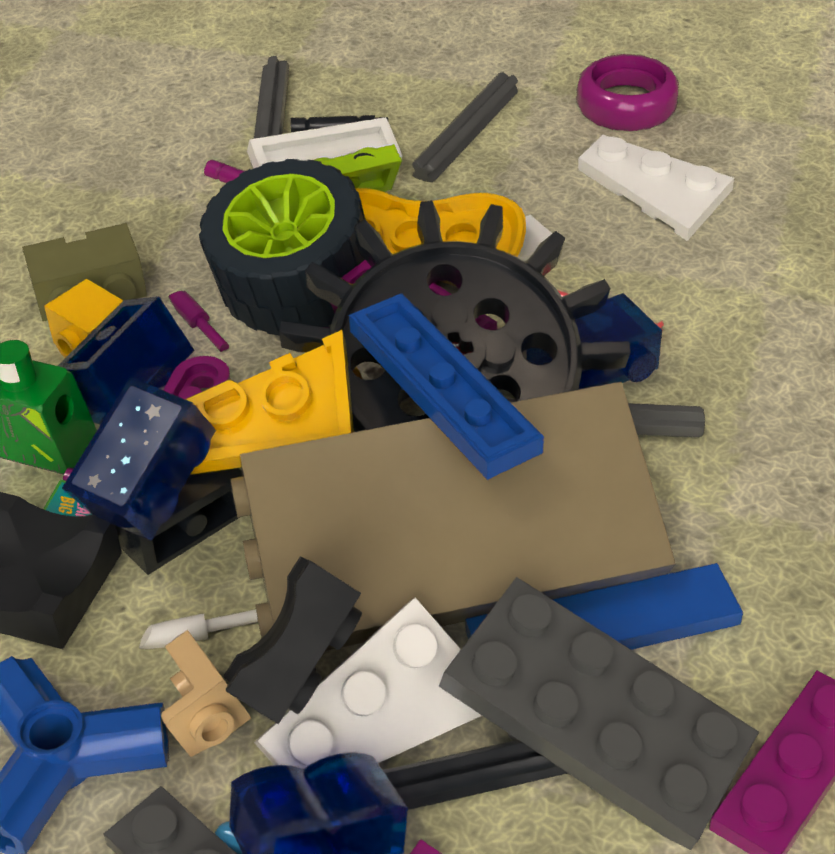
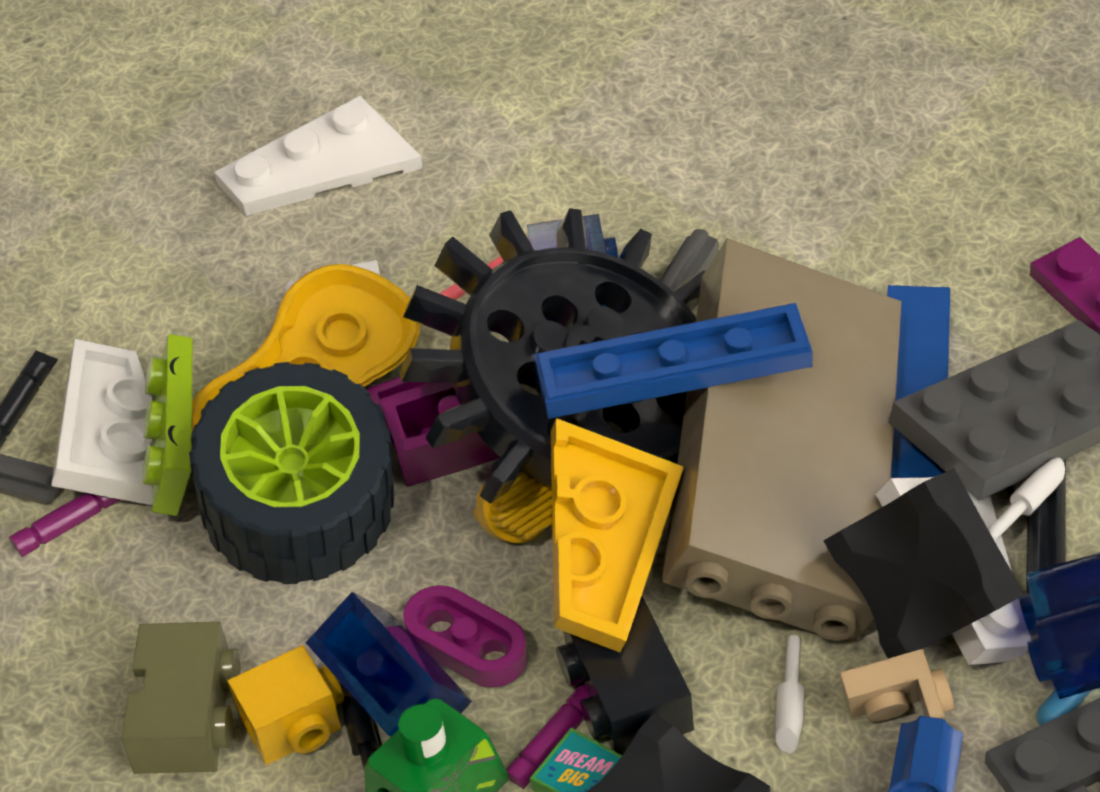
camera: 65 degrees left, 5 degrees up
(140, 458) = (635, 639): brick -> none
(196, 317) = (295, 615): magenta piece -> none
(465, 128) = (105, 281): dark grey axle -> none
(471, 733) = (1030, 495): none -> white piece
(627, 111) = (160, 156): magenta wheel -> none

